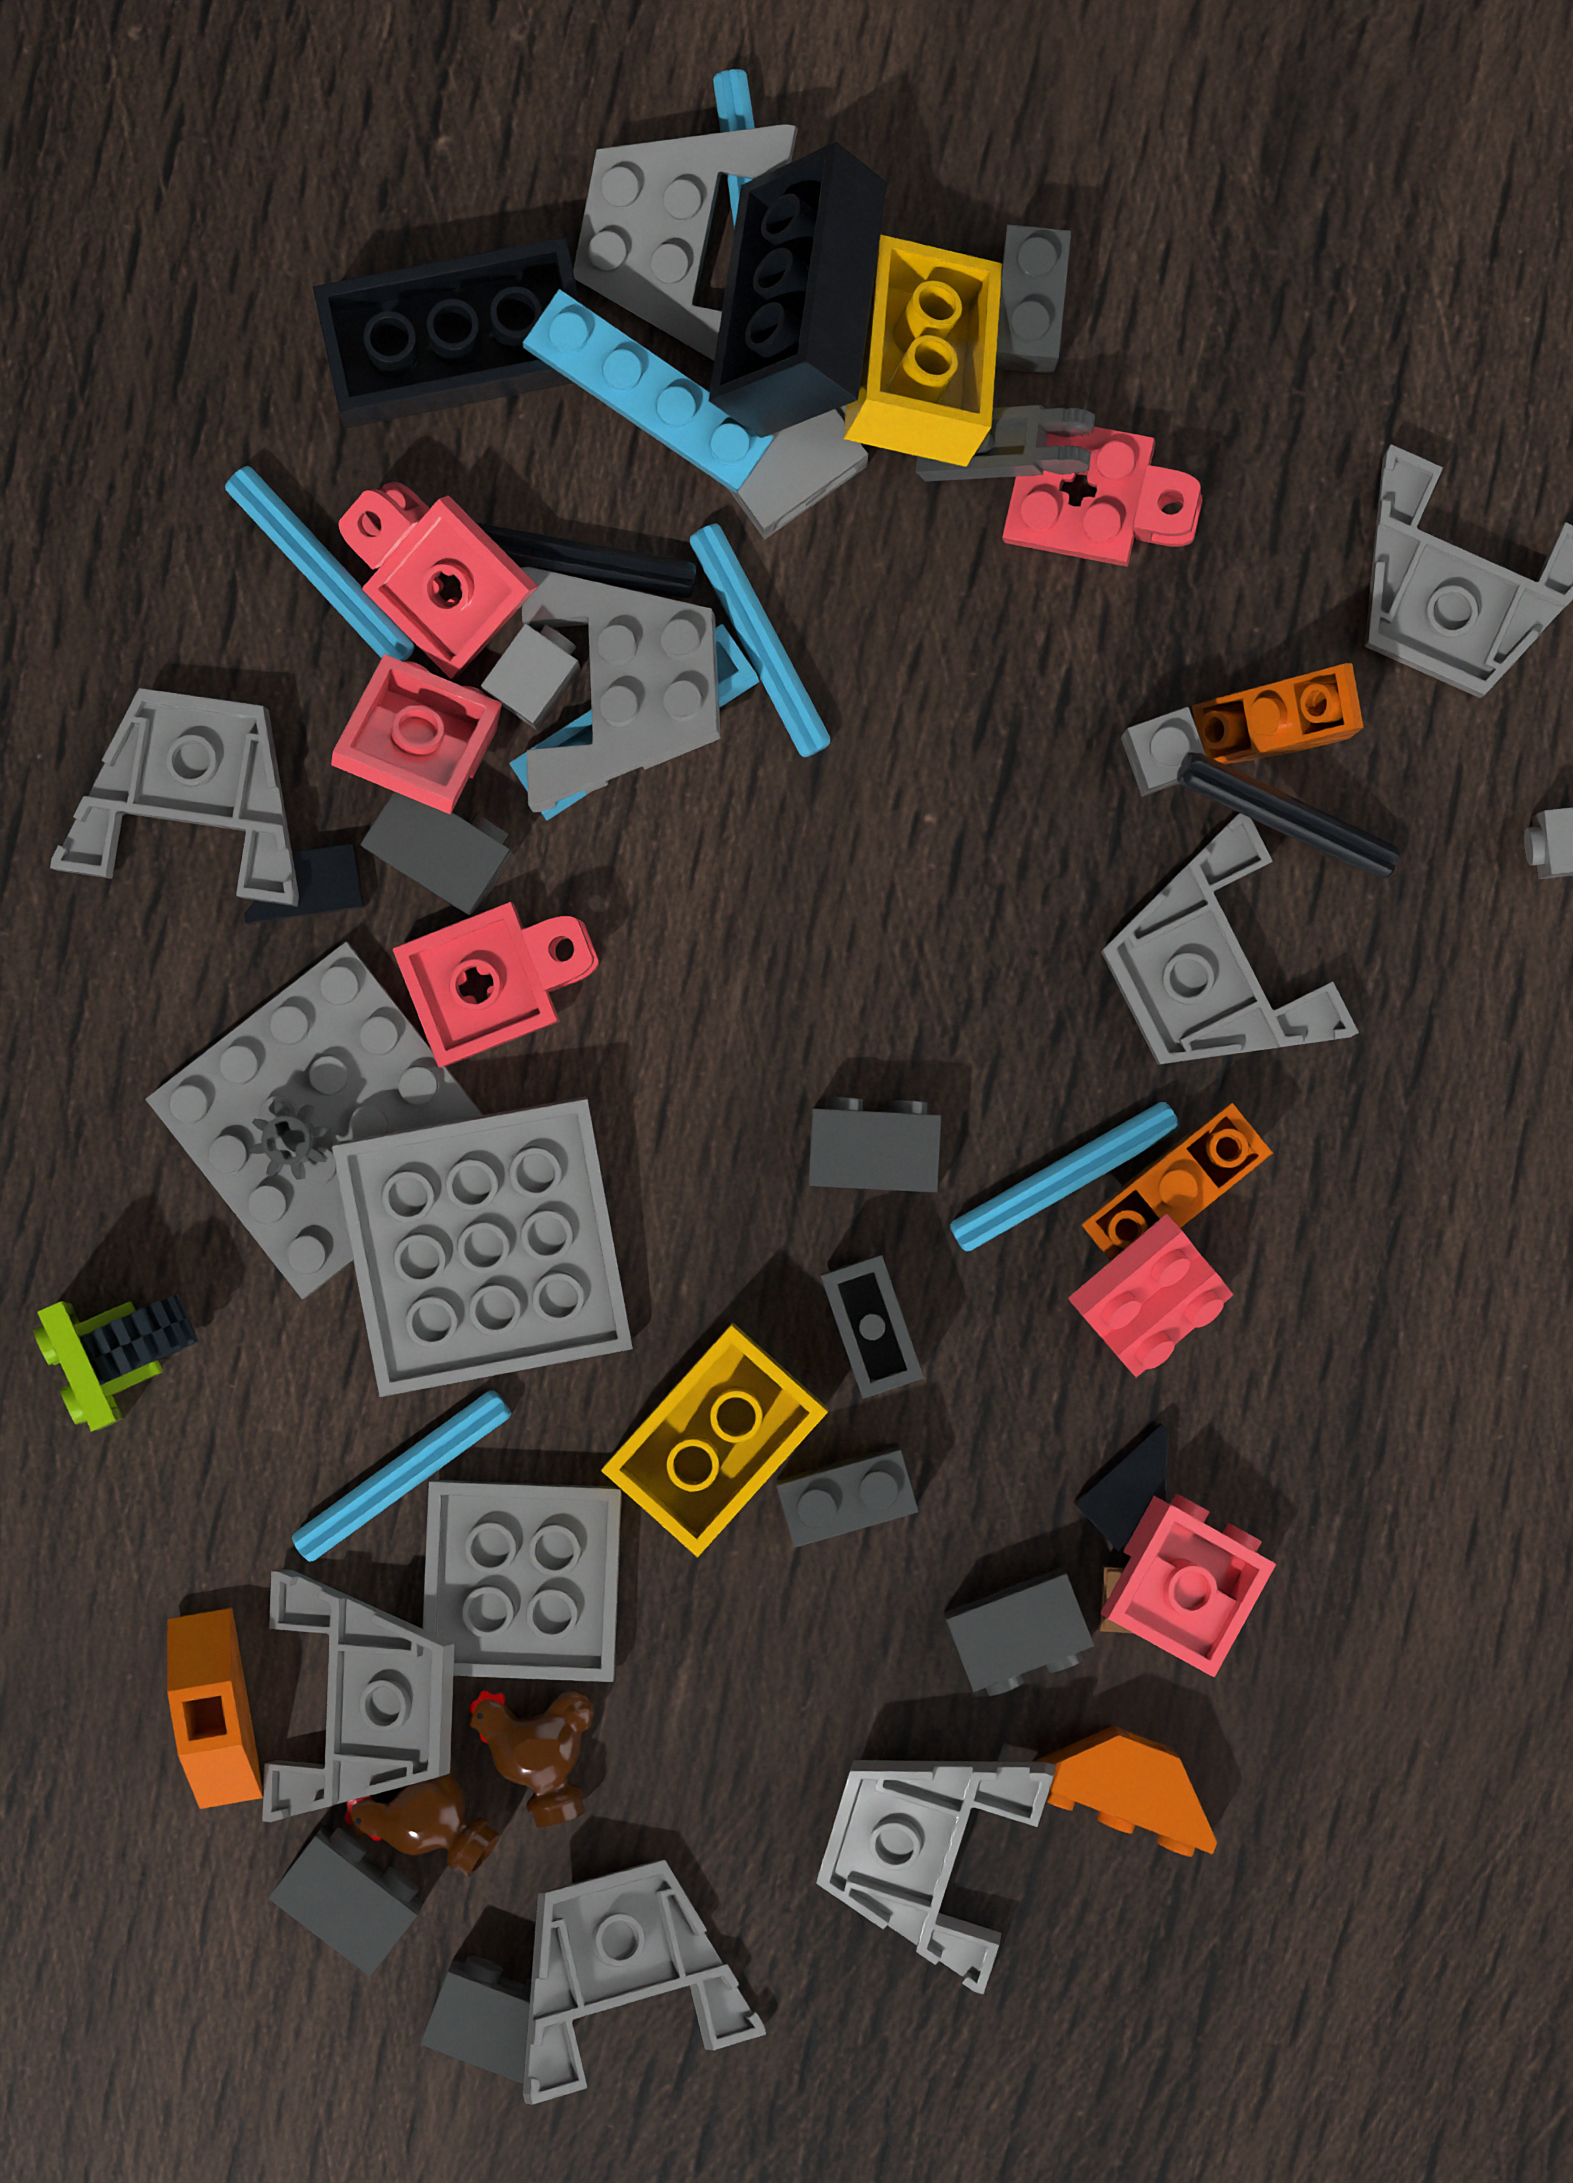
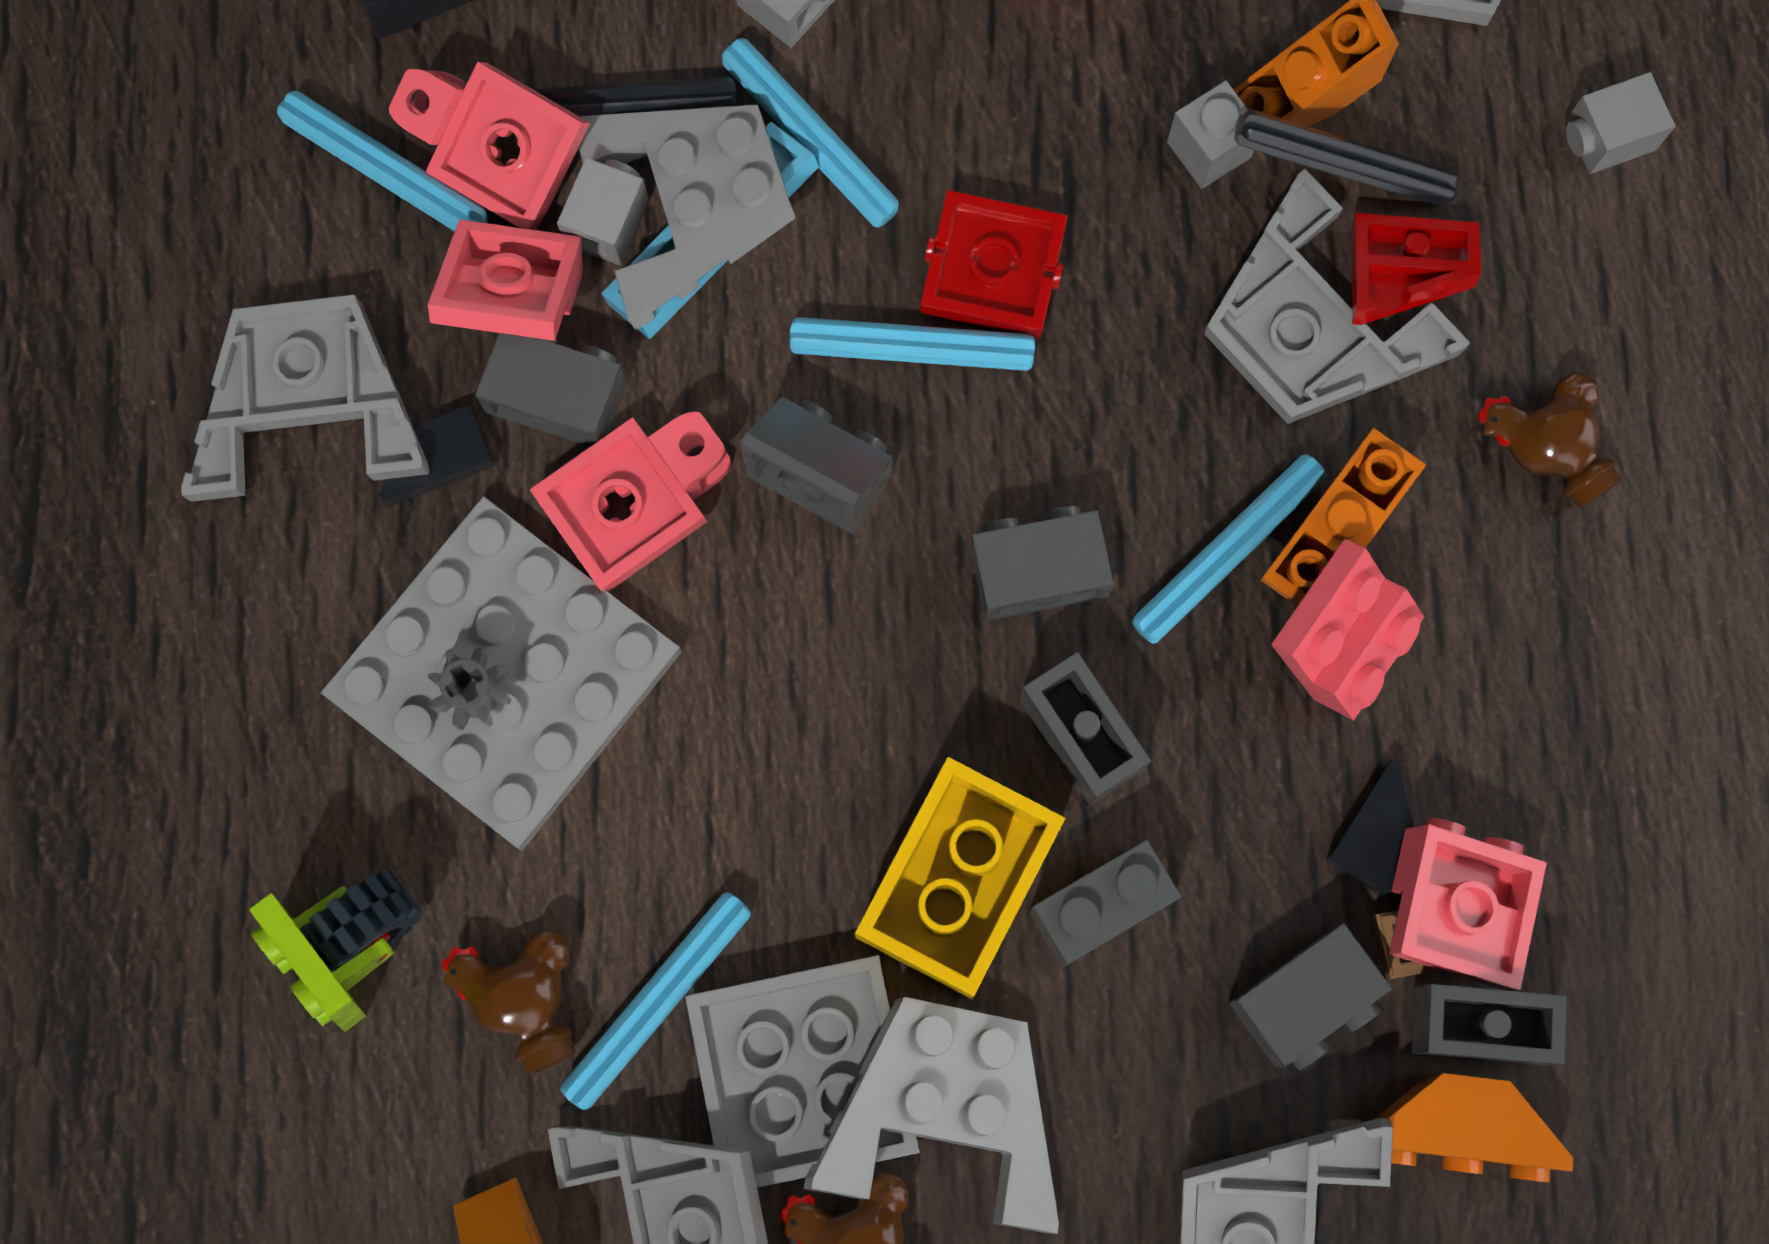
camera: 15 degrees left, 10 degrees down
(271, 1441) = (518, 997): none -> reddish brown animal
(482, 1246) = (683, 748): light grey plate -> none
(659, 1624) = (950, 1081): none -> light grey wing
(682, 993) = (817, 463): none -> dark grey slope
(806, 889) = (912, 343): none -> medium azure axle
(909, 828) = (993, 264): none -> red plate
(1176, 1701) = (1489, 1024): none -> dark grey brick
(1323, 934) = (1409, 262): none -> red wing
(1416, 1148) = (1556, 437): none -> reddish brown animal

